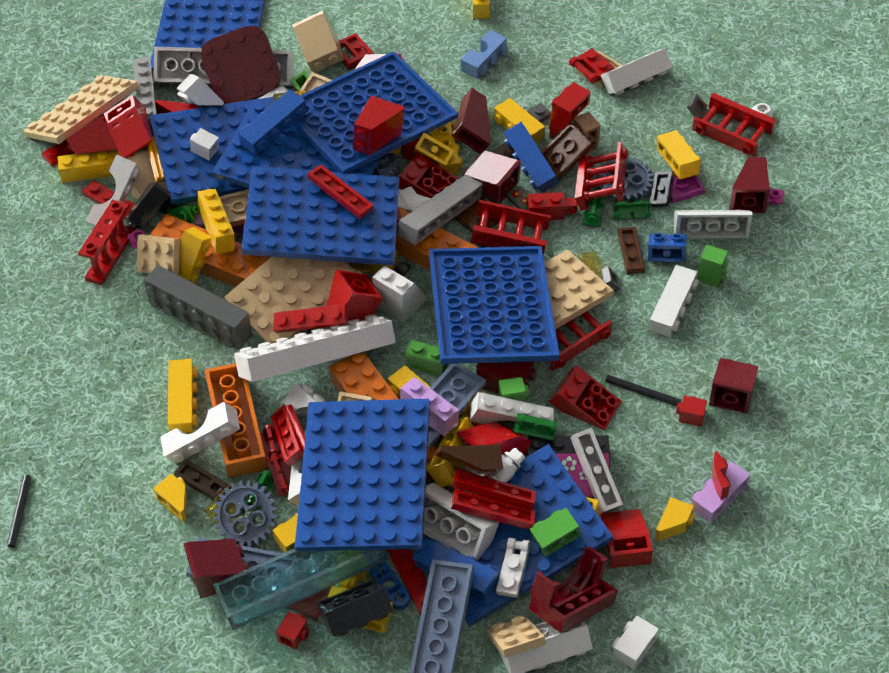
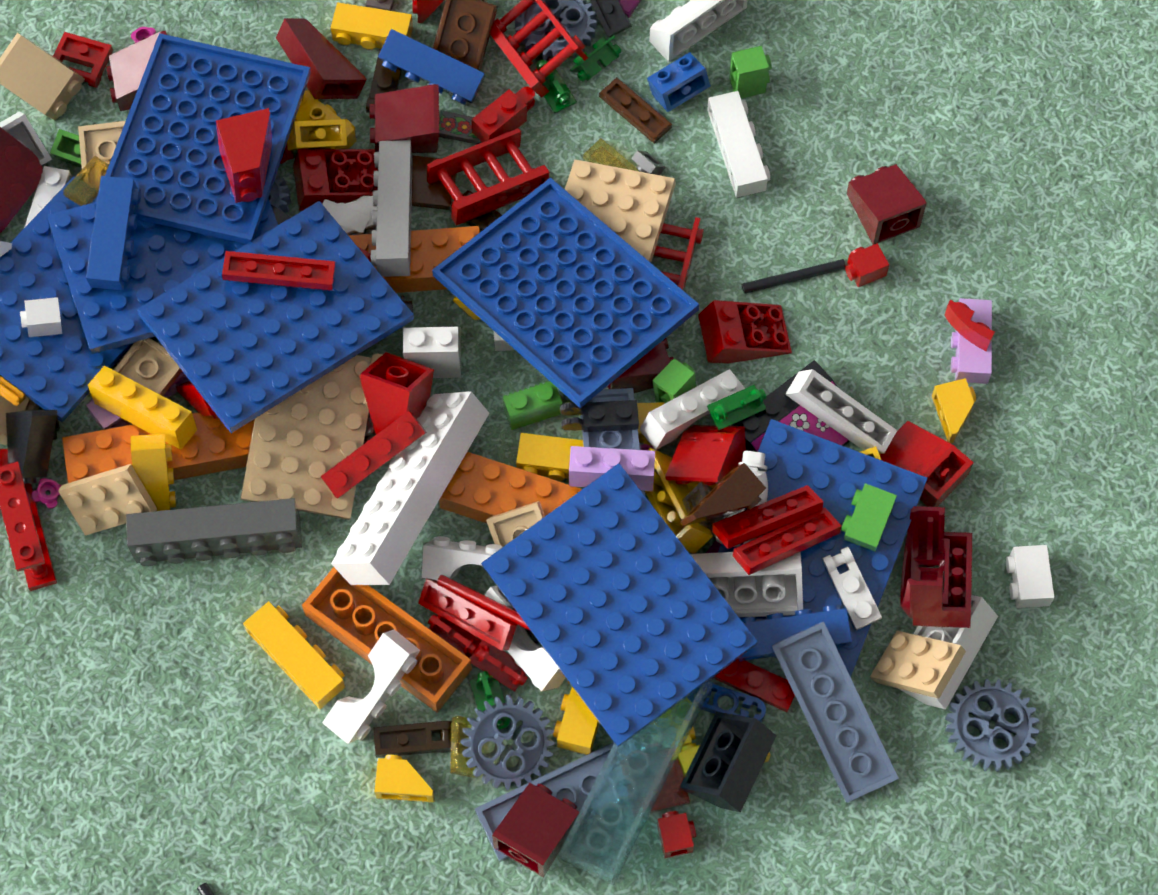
camera: 40 degrees left, 15 degrees up
(184, 213) = (82, 421): green hinge -> none
(452, 379) = (601, 416): none -> black hinge

